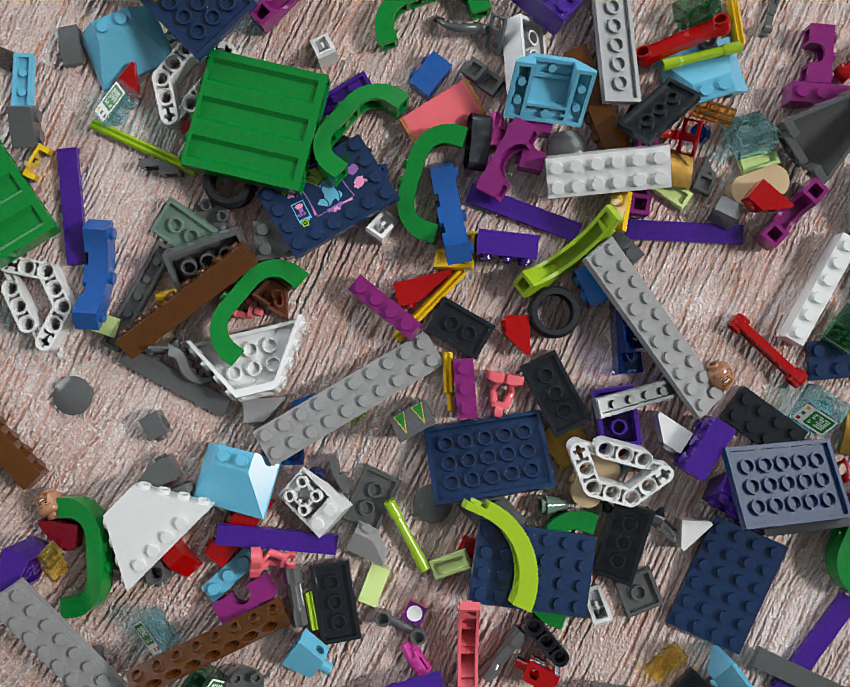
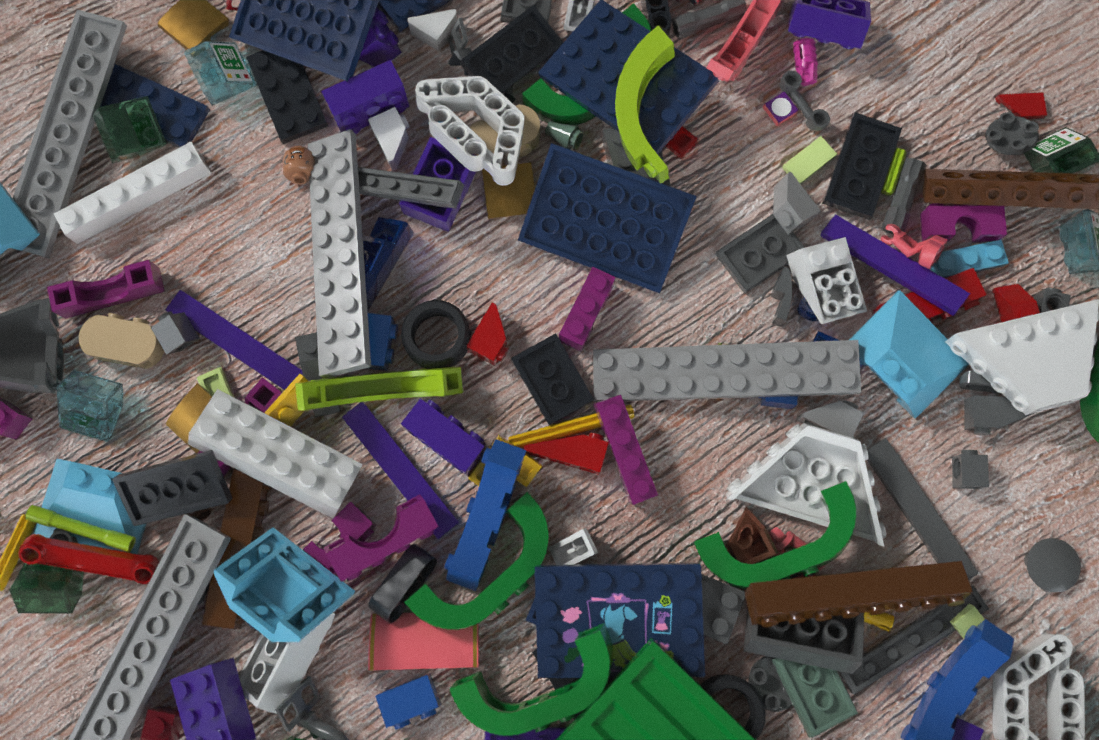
camera: 150 degrees left, 10 degrees down
(184, 365) = (900, 525): dark grey piece -> none
(308, 655) = (924, 125): medium azure torso -> none
(396, 515) = (743, 216): lime piece -> none
(412, 419) = (667, 303): dark grey slope -> none
(425, 506) = (704, 211): dark grey dish -> none
(448, 378) = (598, 332): yellow axle -> none
(450, 564) = (712, 134): yellowish green tile -> none
(482, 77) = (347, 661): dark grey slope -> none
(497, 129) = (369, 584): dark pink hinge -> none
(498, 378) = (543, 299): coral piece -> none
(555, 393) = (489, 246): black plate -> none
(566, 142) = (300, 520): dark grey dish -> none
(683, 135) = (163, 447): red piece -> none
(704, 179) = (172, 387): dark grey tile -> none
(705, 133) = (142, 440): clear blue tile -> none
(715, 113) = (113, 451): clear orange tile -> none
(757, 162) = (102, 369): yellowish green tile -> none
(765, 199) = (123, 319): red slope -> none
(794, 375) = (242, 204): red piece -> none

